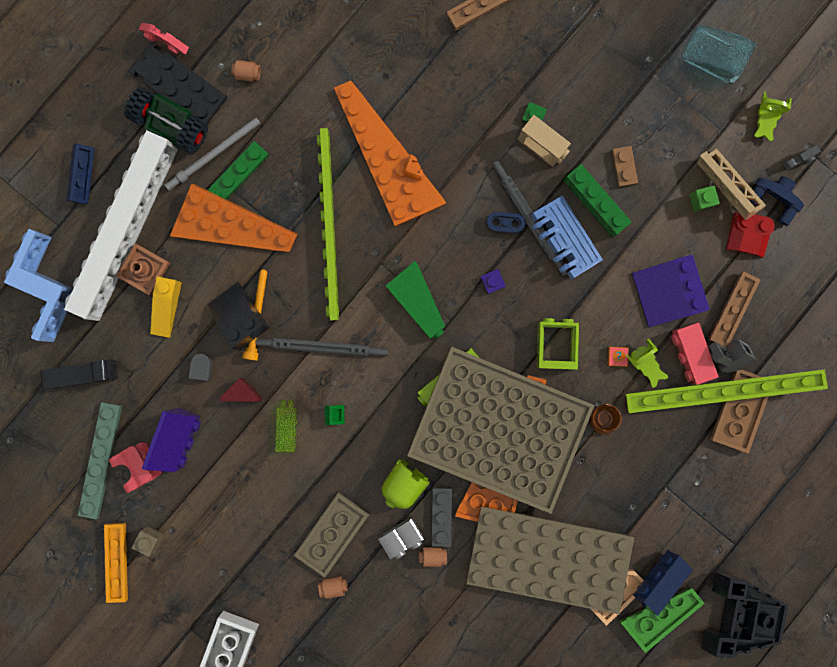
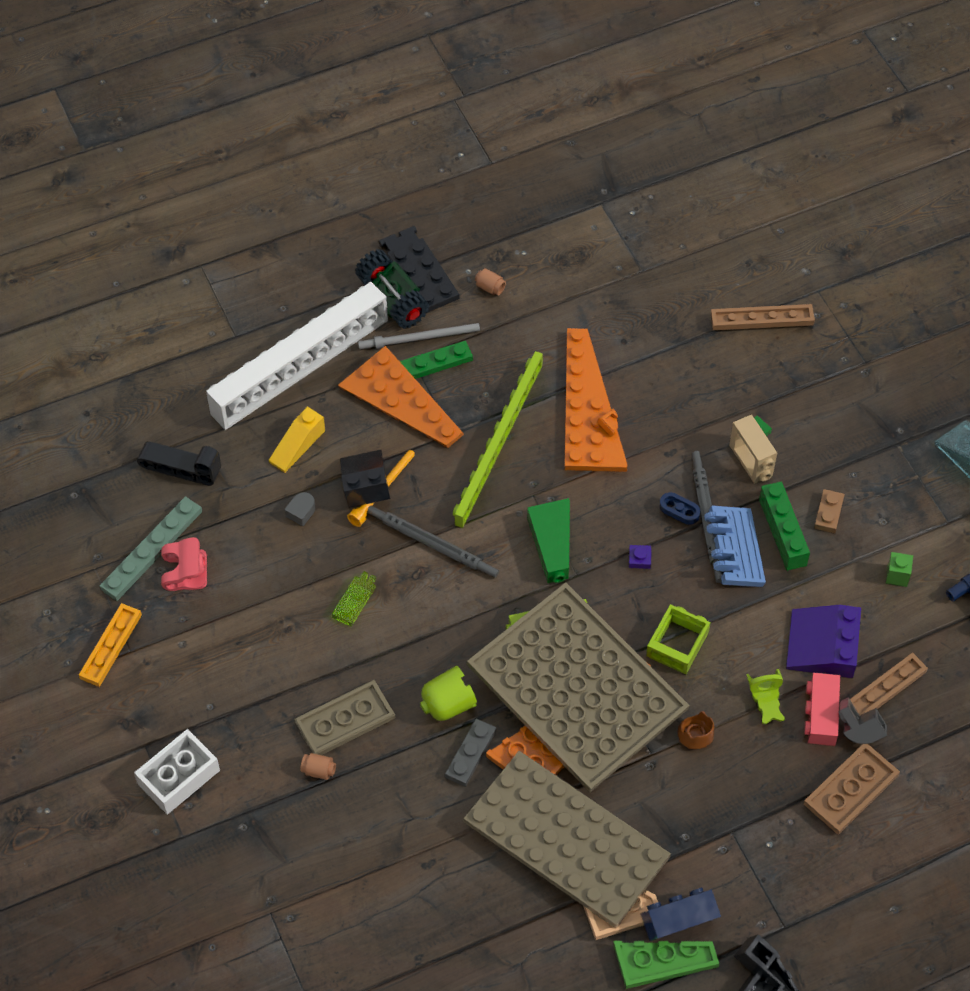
camera: 30 degrees right, 30 degrees down
(25, 278) = (191, 370): light blue bracket -> none
(80, 174) = (284, 301): dark blue plate -> none
(142, 269) = (293, 399): nougat plate -> none
(147, 541) = (155, 637): dark tan brick -> none
(153, 34) = (421, 220): coral plate -> none
(172, 440) = (237, 549): dark purple slope -> none
(241, 392) = (327, 545): dark red slope -> none
(334, 415) = (411, 604): green plate -> none
(401, 538) = (416, 750): light grey brick -> none
(433, 557) = (440, 784): nougat brick -> none
(617, 356) = (738, 680): tile -> none
(726, 391) = (840, 753): lime plate -> none
(728, 186) = (929, 568): tan fence -> none
(750, 235) = (937, 624): red slope -> none

